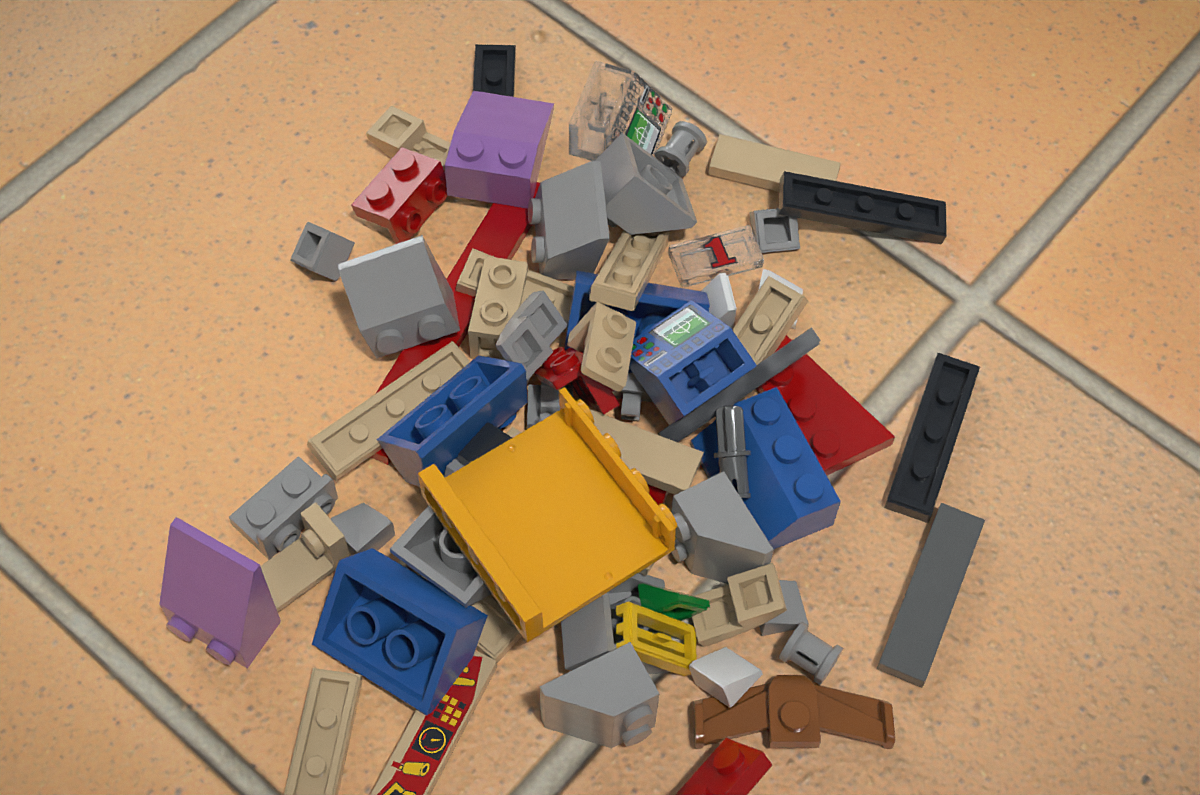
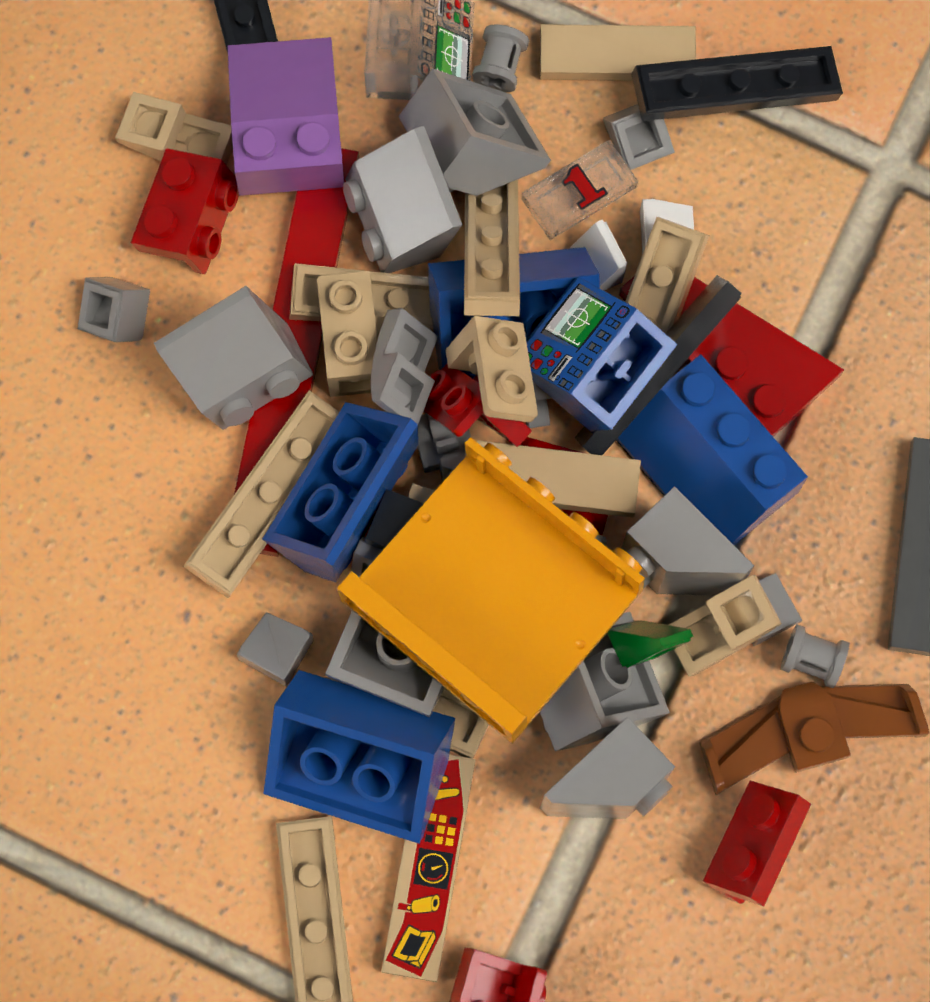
camera: 15 degrees left, 15 degrees up
(216, 596) = (148, 784): medium lavender slope -> none
(273, 515) = (179, 644): light grey bracket -> none
(306, 559) = (220, 708): tan bracket -> none
(657, 648) = (622, 696): yellow tile -> none
(724, 675) = (728, 706): white slope -> none
(732, 447) = (671, 446): dark grey axle -> none
(932, 438) = (885, 355): black tile -> none

